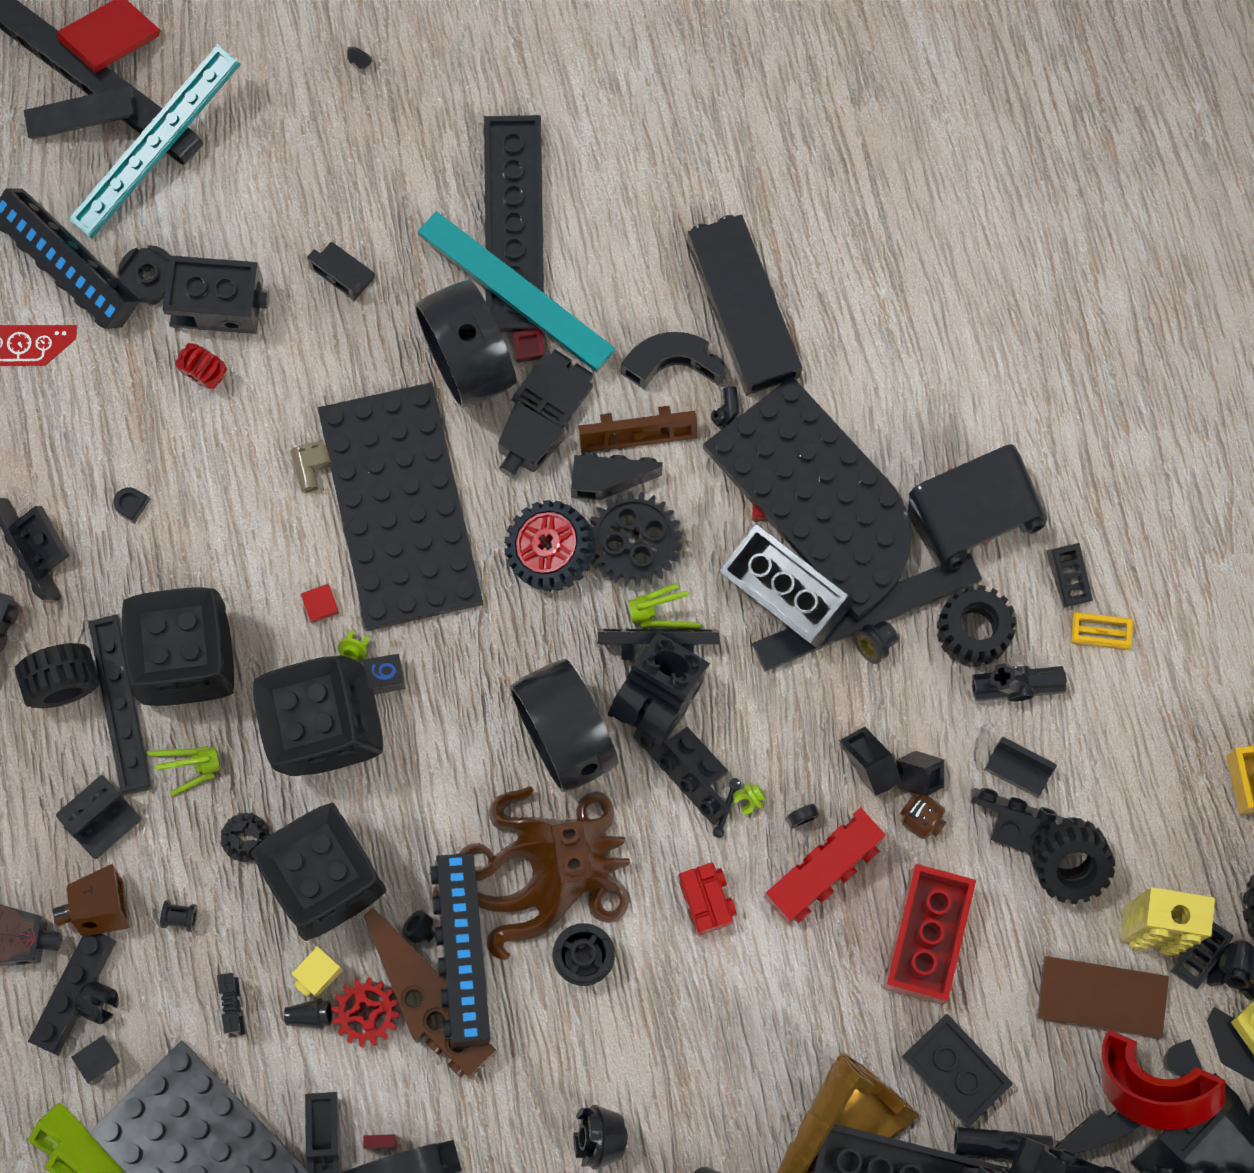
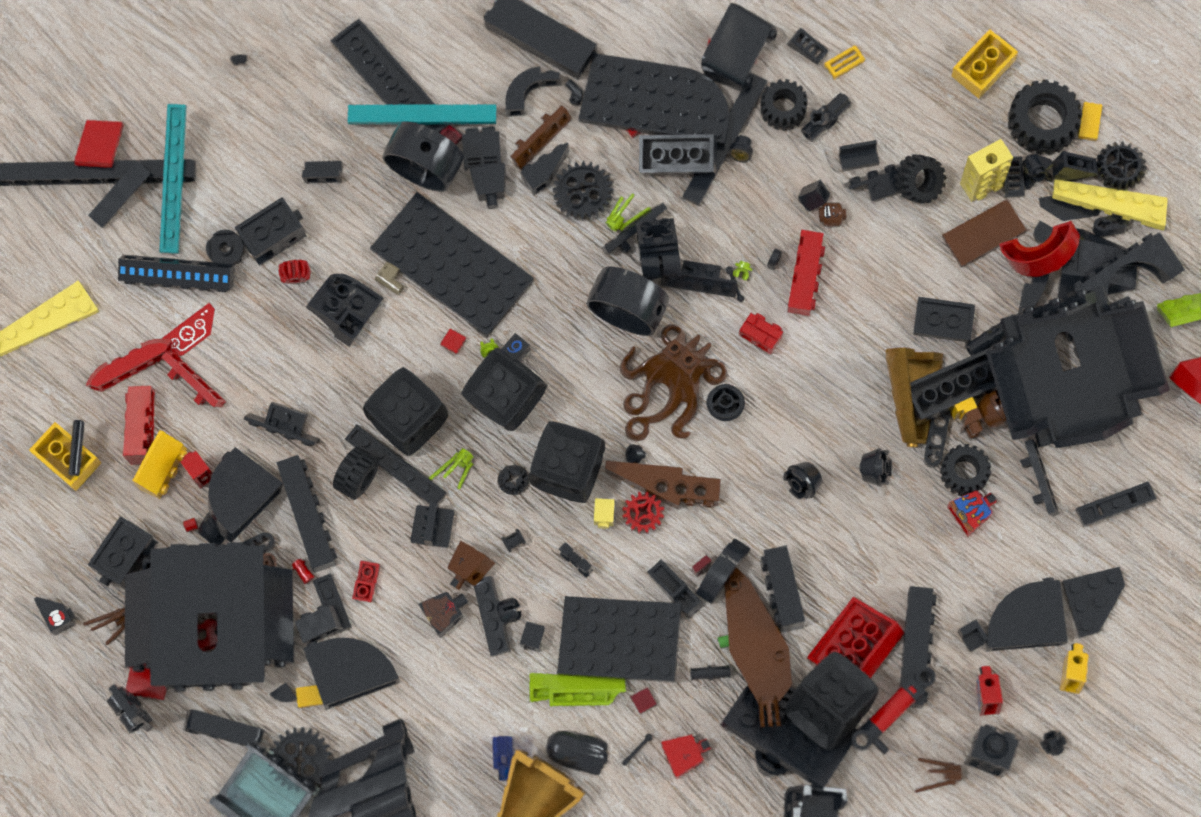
camera: 30 degrees left, 0 degrees up
(130, 503) = (315, 367): black tile -> none
(223, 456) = (344, 306): none -> black slope
(310, 1014) = (616, 535): black cone -> none
(462, 951) = (666, 444): black brick -> none
(570, 551) = (541, 211): wheel -> none
(871, 761) = (786, 207): black slope -> none
(929, 934) = (880, 266): red brick -> none

